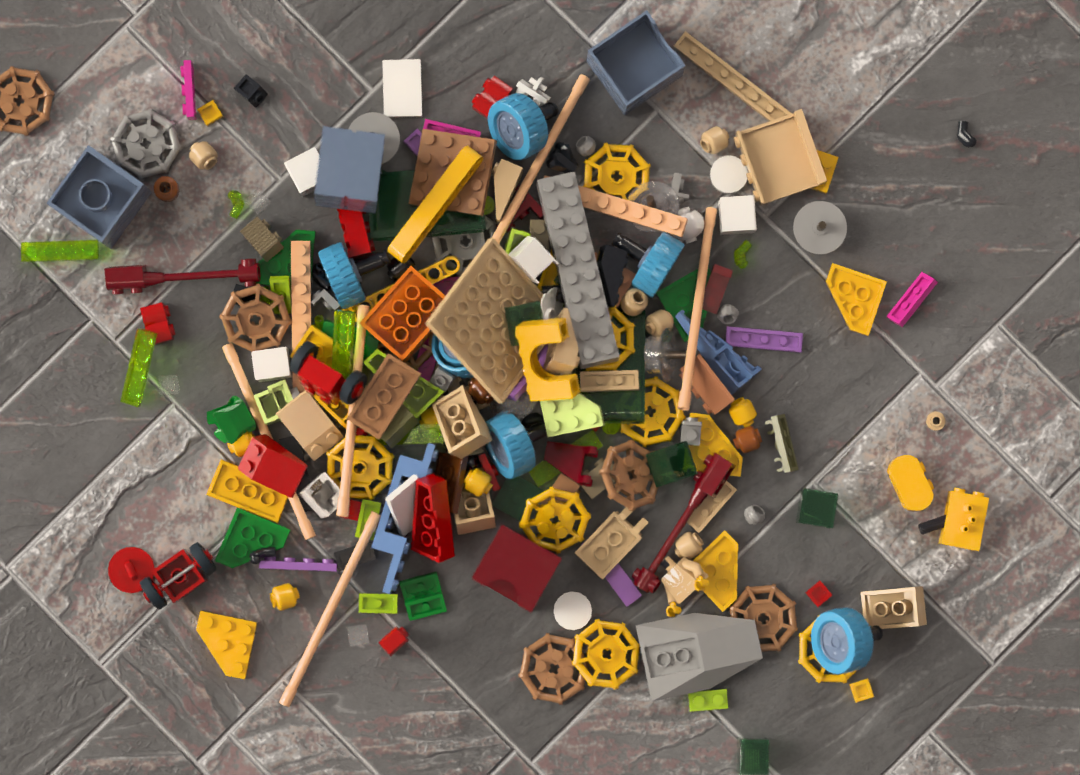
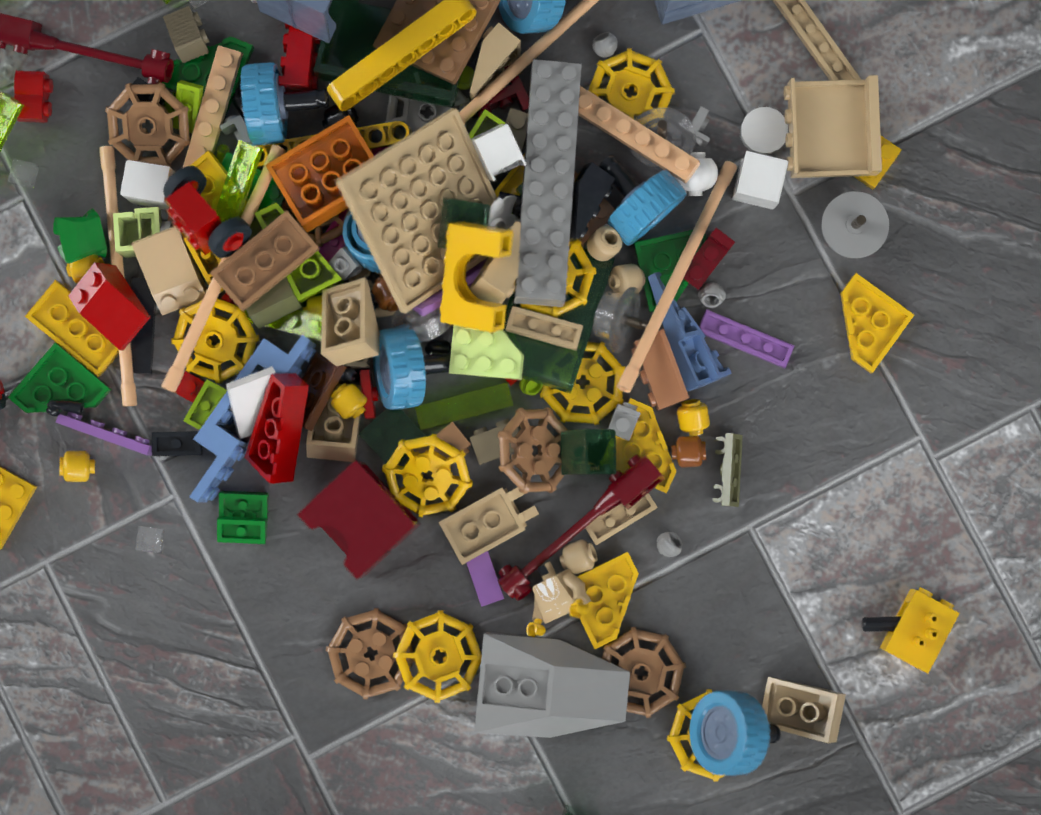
camera: 20 degrees right, 0 degrees up
(291, 689) = (49, 580): light nougat piece -> none
(321, 495) = (156, 357): white piece -> none
(378, 603) = (185, 509): lime plate -> none
(394, 640) = (188, 560): red brick -> none
(562, 159) = (572, 49): black rock -> none
(570, 460) = (469, 410): dark red flag -> none
(572, 610) = (415, 590): white tile -> none
(708, 700) = (544, 750): lime plate -> none
(714, 140) = (760, 84): tan head -> none
(740, 256) = (748, 230): clear neon green arm -> none
(817, 508) = (747, 560): clear green piece -> none
(818, 593) = (717, 663): red plate -> none
(861, 690) = (732, 796): yellow tile -> none
(910, 482) = (869, 565): yellow brick -> none
(912, 299) = (938, 345): dark pink plate -> none
(929, 421) = (914, 500): tan plate -> none

